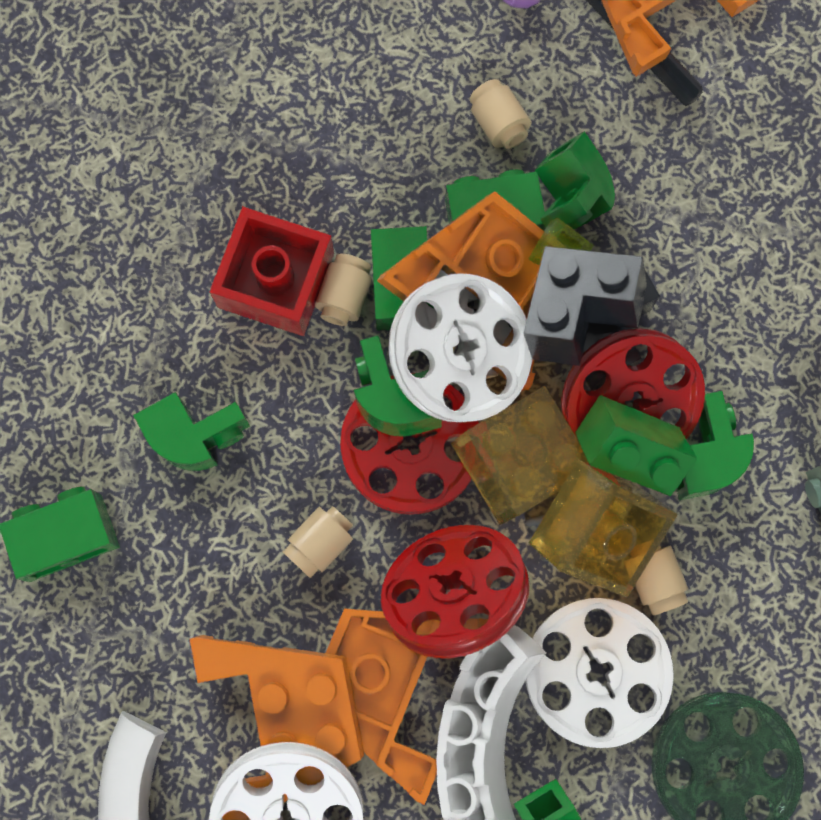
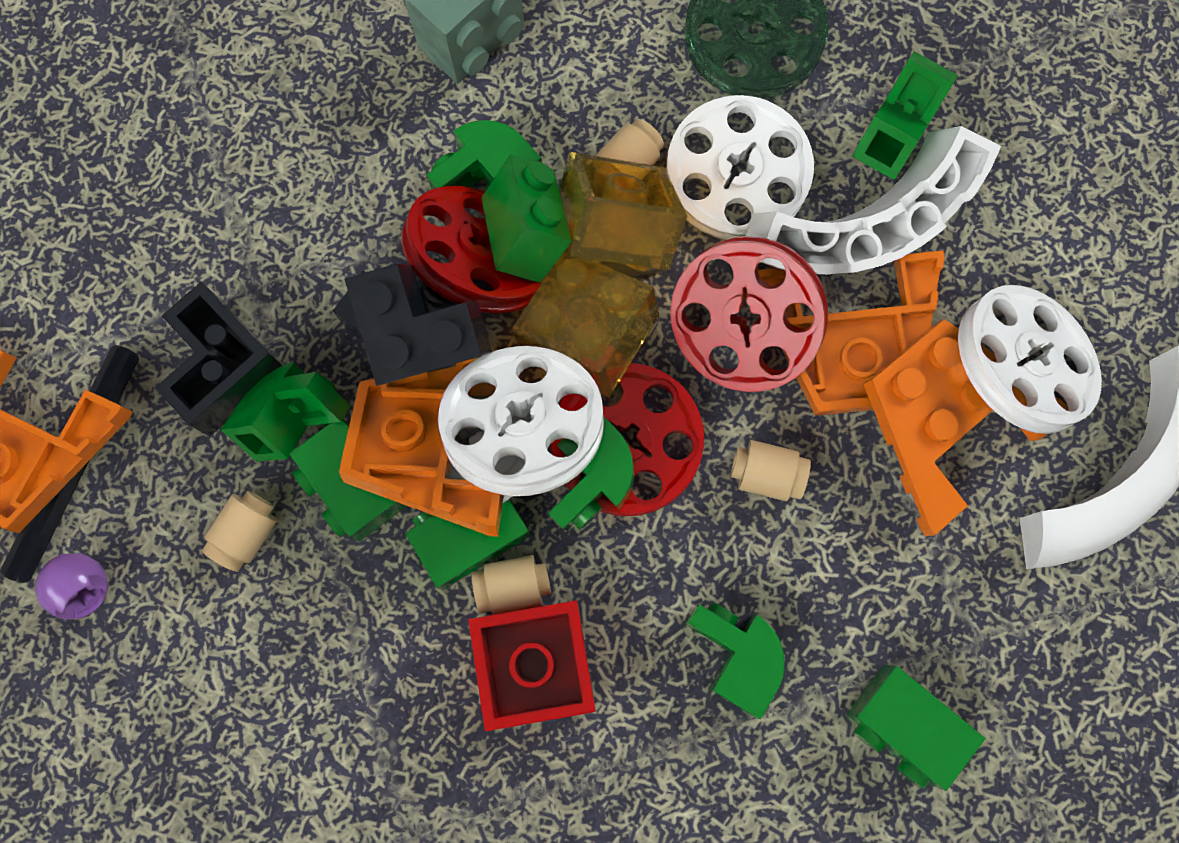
camera: 115 degrees left, 0 degrees up
(560, 236) = (358, 387): clear neon green tile -> none
(643, 163) = (224, 363): none -> black brick

